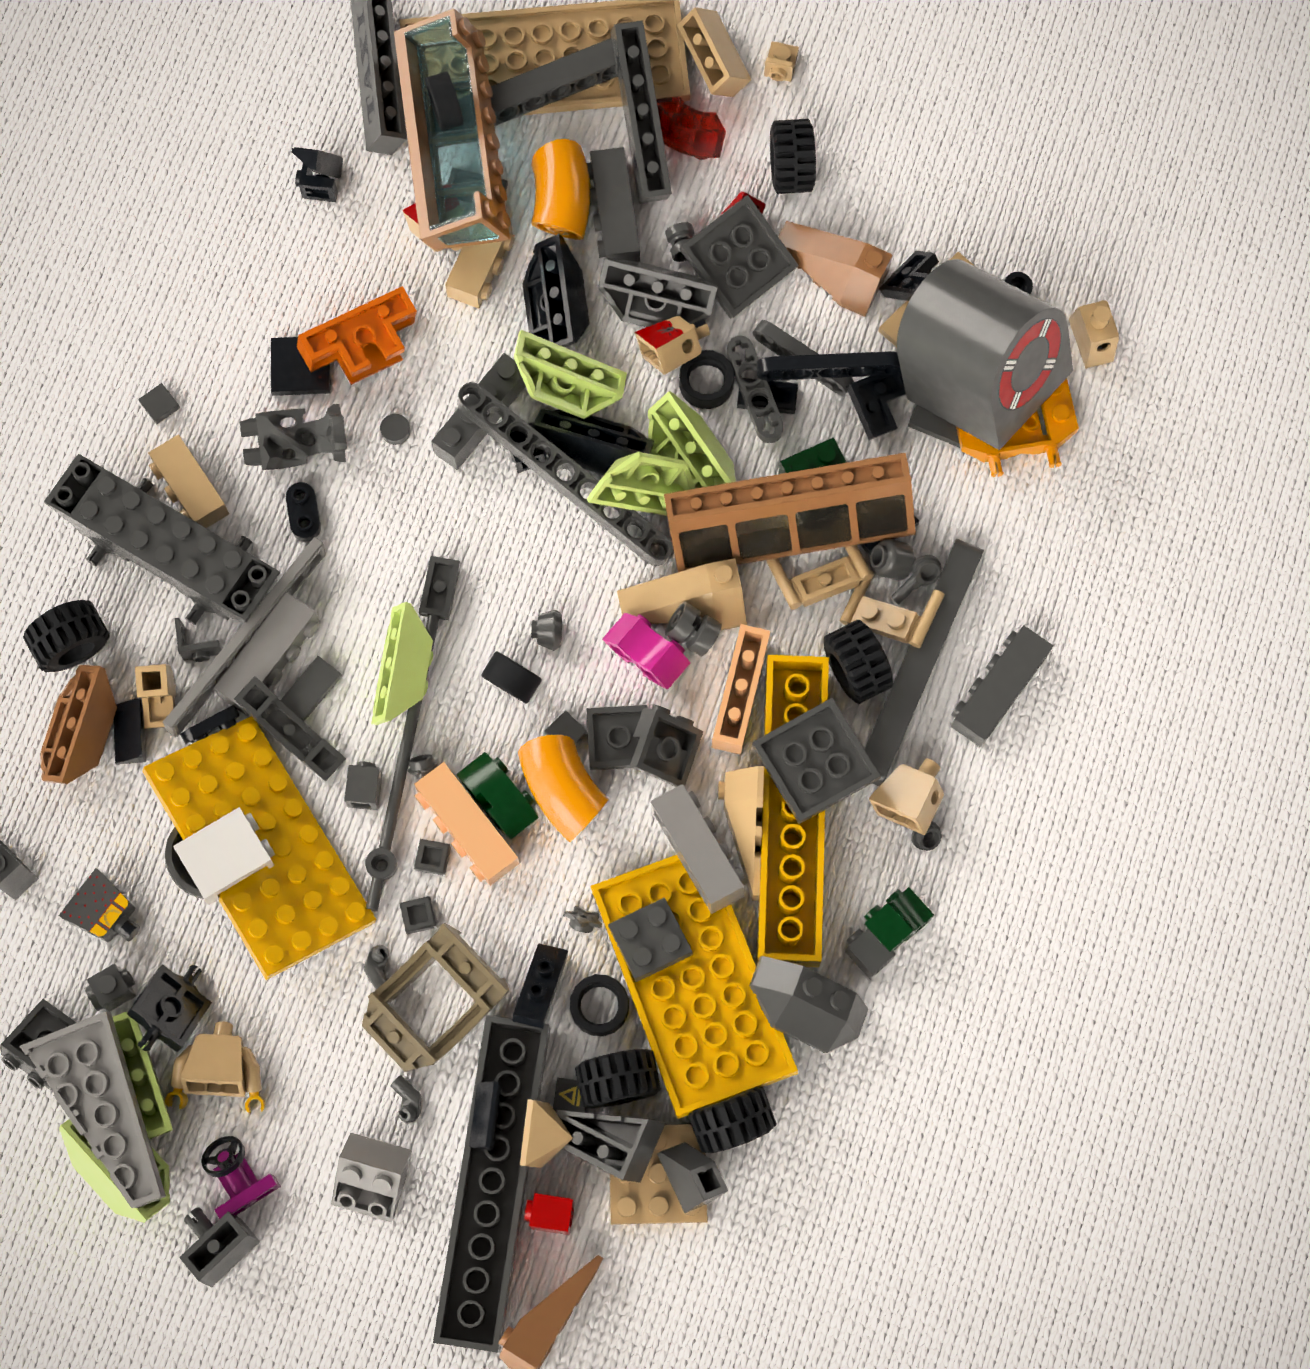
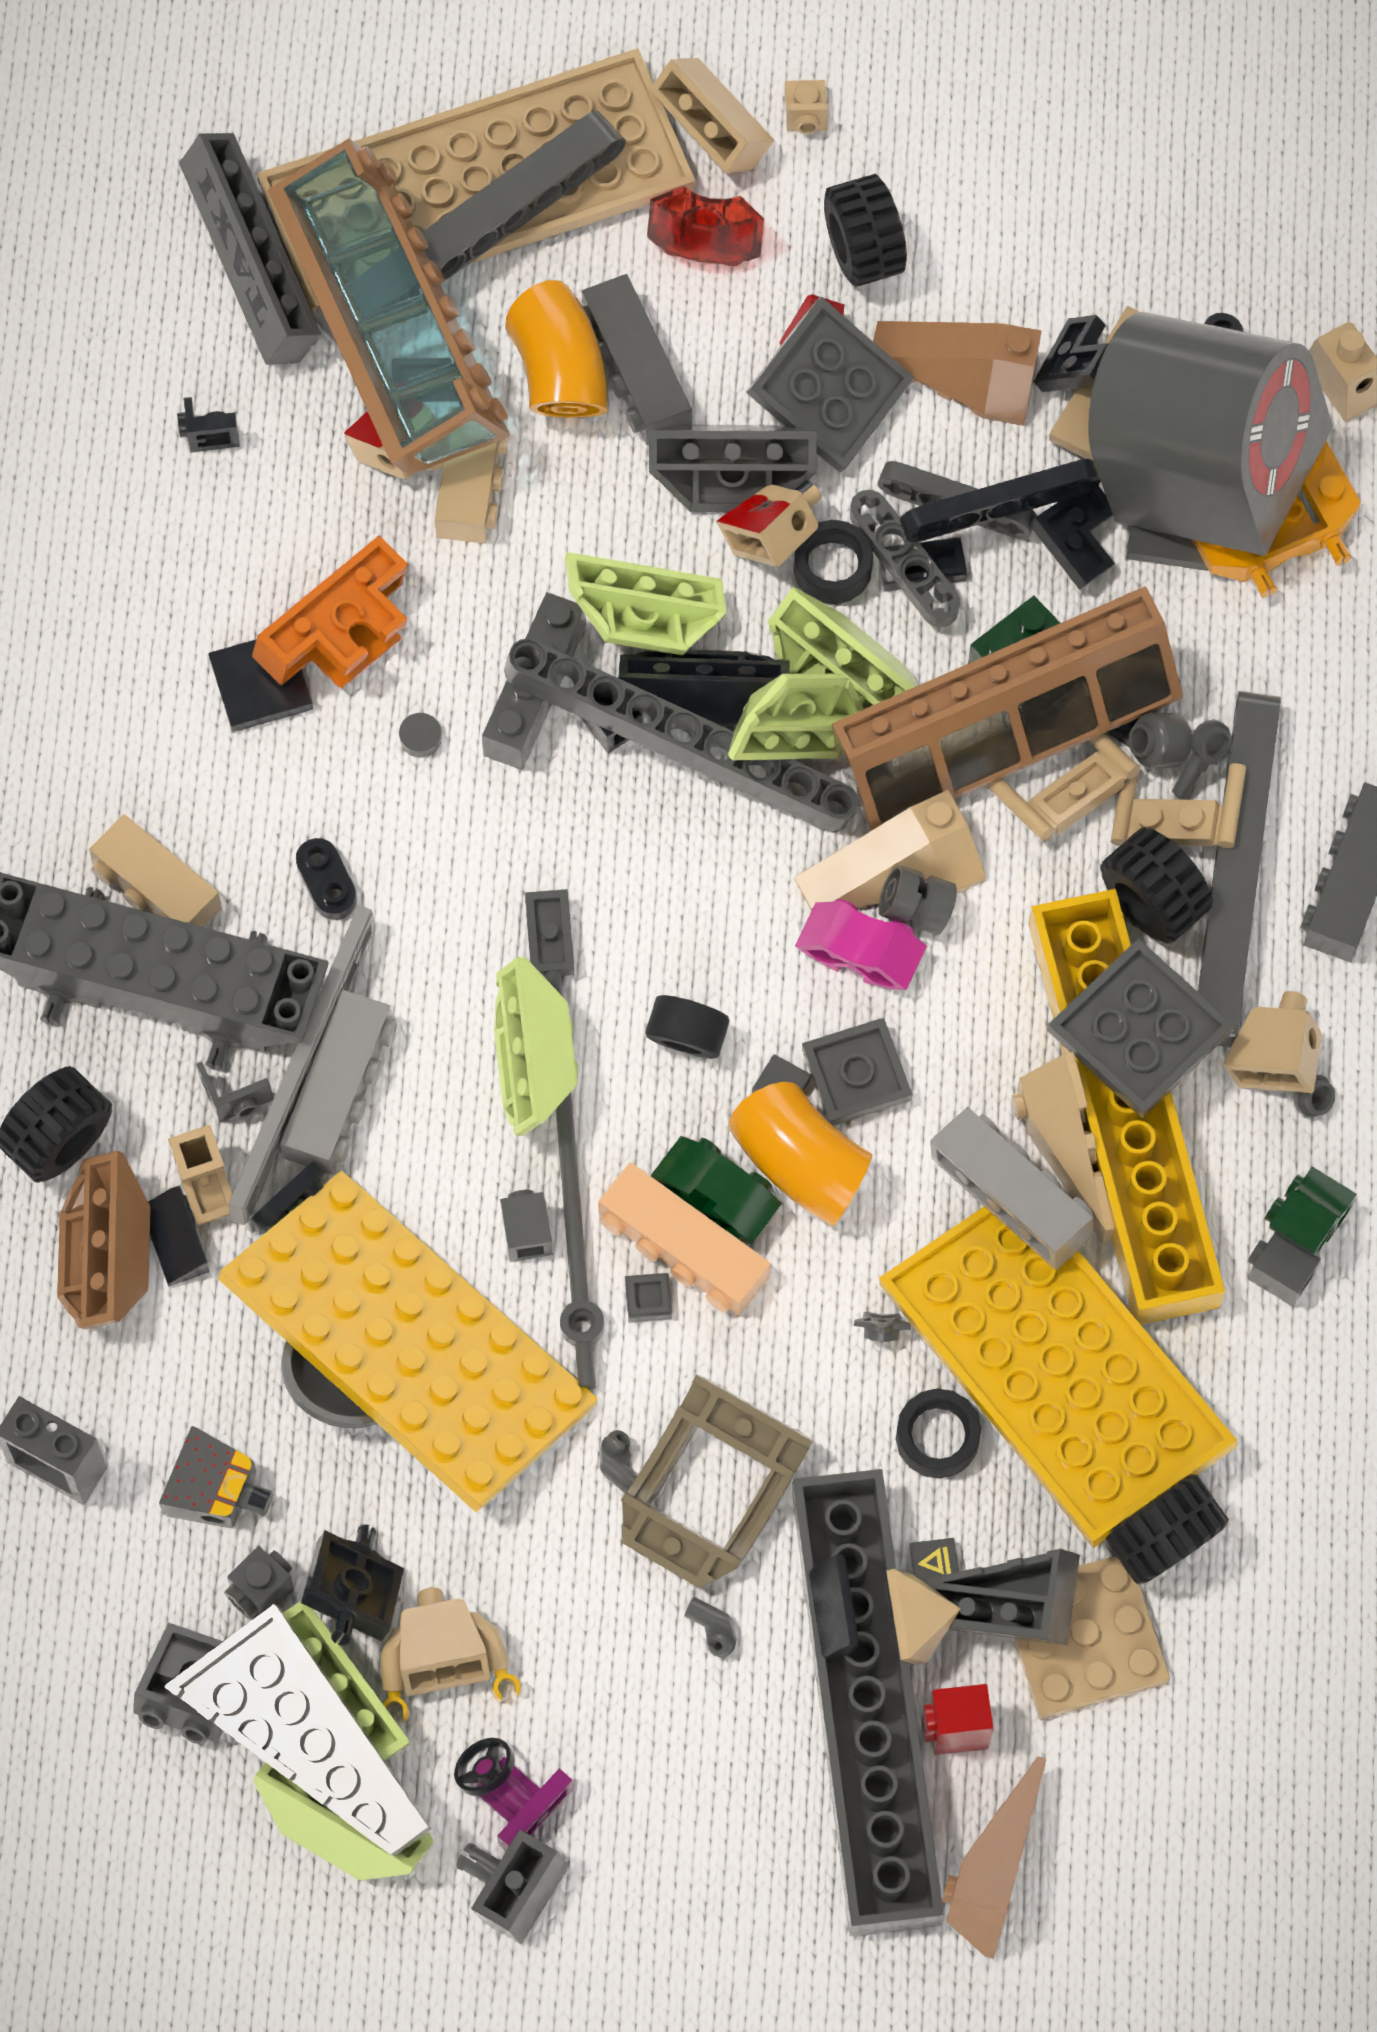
camera: 15 degrees left, 5 degrees down
(159, 403) = (77, 781): dark grey tile -> none
(224, 854) = (371, 1356): white panel -> none
(274, 439) = (335, 761): dark grey hips -> none
(289, 729) = (400, 1176): dark grey slope -> none
(311, 688) = (410, 1114): dark grey tile -> none
(320, 161) = (208, 392): black slope -> none
(370, 1177) = (696, 1741): light grey slope -> none
(418, 915) = (652, 1379): dark grey tile -> none
(421, 765) = (598, 1177): dark grey plate -> none
(444, 101) = (369, 268): black tyre -> none
(540, 986) = (852, 1424): black plate -> none
(548, 629) = (717, 951): dark grey cone -> none
(555, 293) = (589, 494): black wedge -> none
(617, 1078) = (996, 1516): black tyre -> none
(641, 111) = (640, 220): dark grey brick -> none
(650, 939) = (984, 1324): dark grey plate -> none
(665, 745) = (927, 1063): dark grey plate -> none
(677, 236) = (737, 377): dark grey wheel -> none
(692, 1176) = (1136, 1618): dark grey slope -> none
(740, 689) = (1006, 964): light nougat brick -> none
(807, 1004) = (1222, 1351): dark grey wedge -> none

